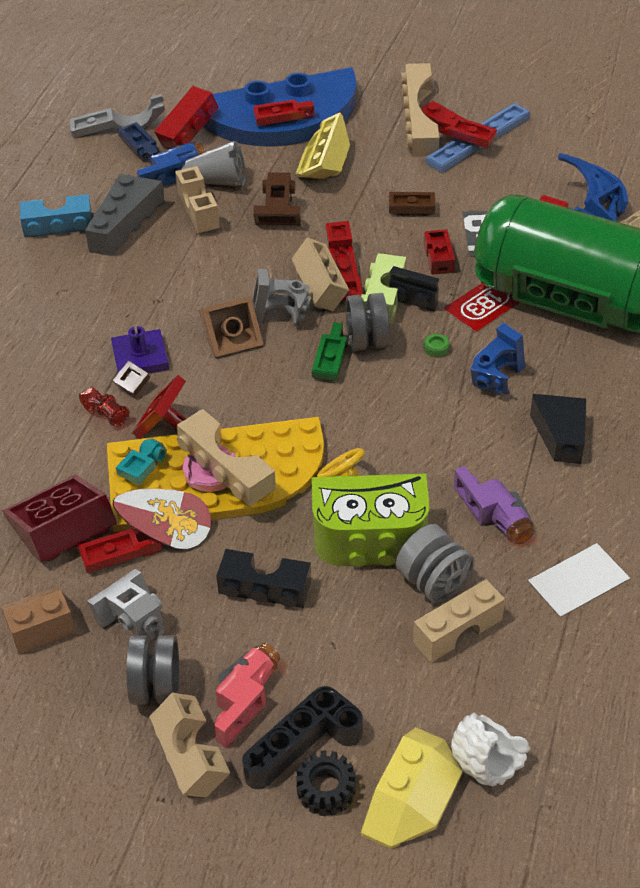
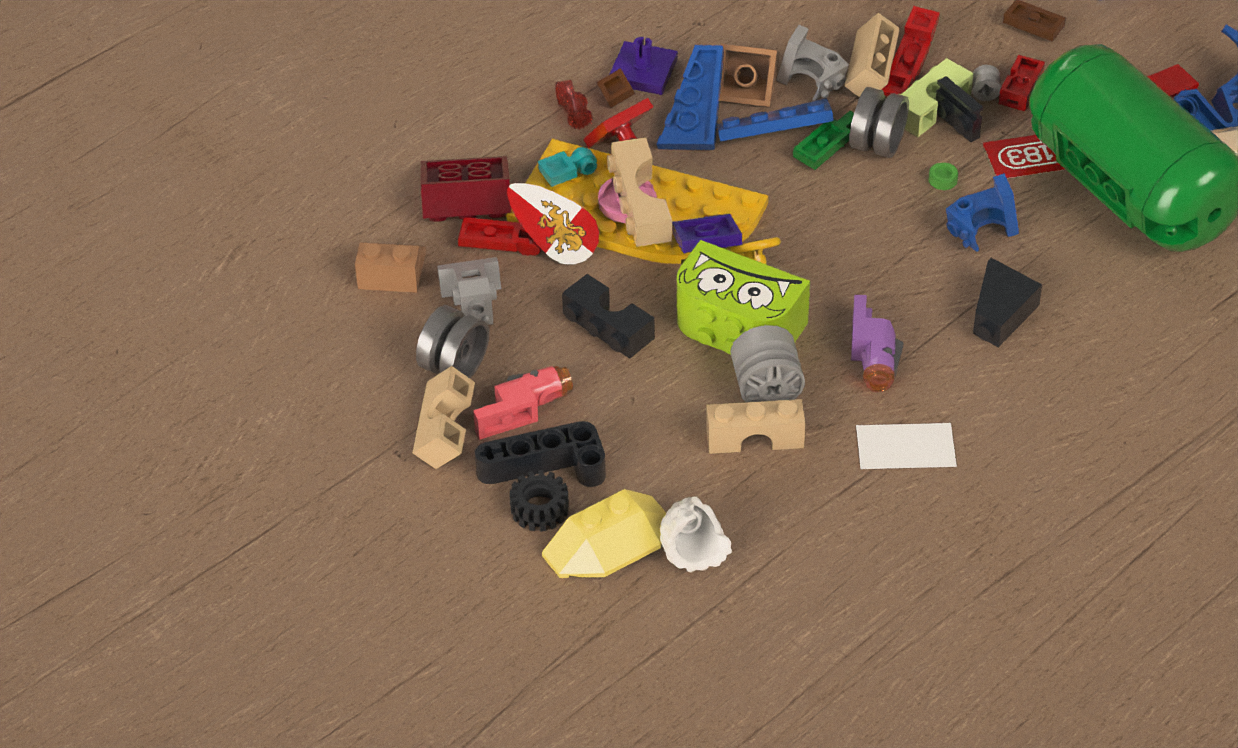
camera: 30 degrees right, 0 degrees up
(211, 367) = (696, 104): none -> blue wing
(282, 352) = (782, 119): none -> blue wing
(297, 470) = (716, 230): none -> dark purple tile
(416, 260) = (986, 82): none -> light grey wheel

